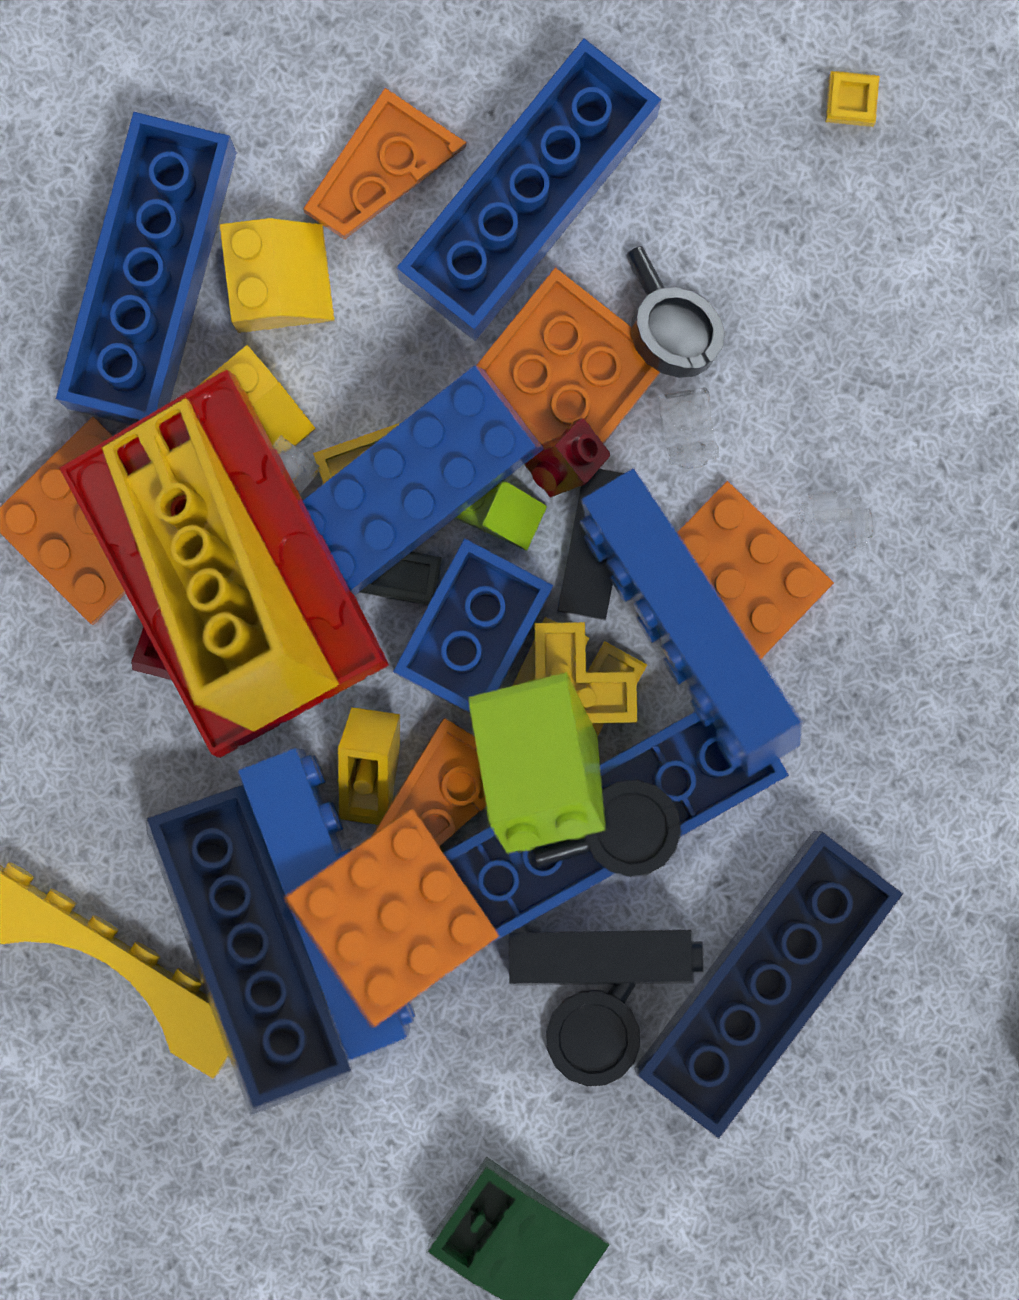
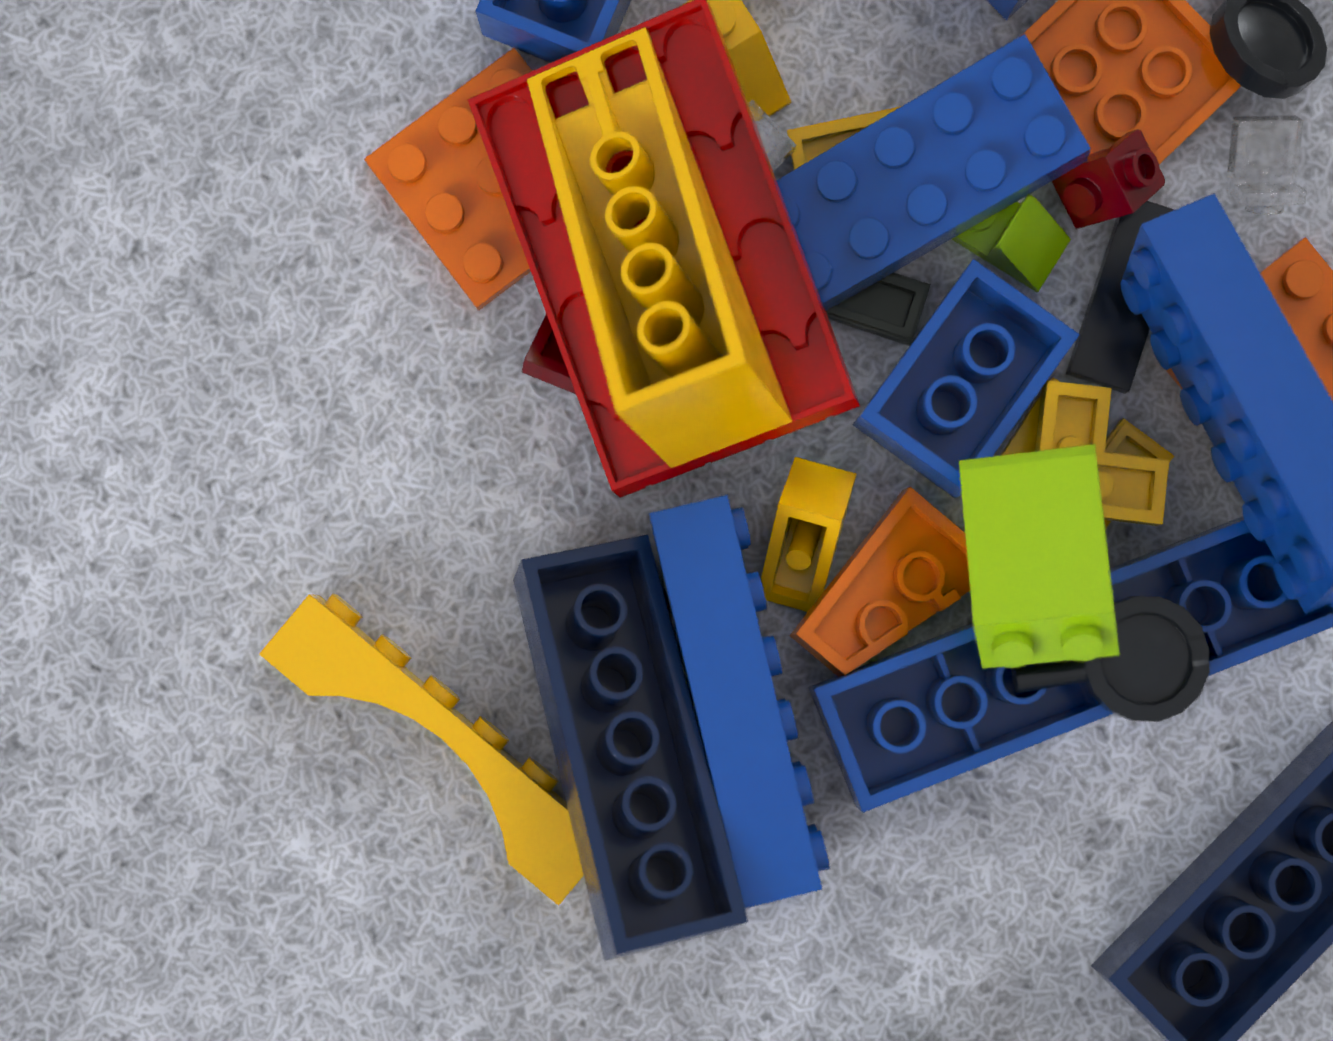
camera: 10 degrees right, 0 degrees up
(391, 917) = (823, 731): orange plate -> none
(594, 1036) = (1047, 914): black piece -> none
(604, 957) = (1080, 820): black brick -> none

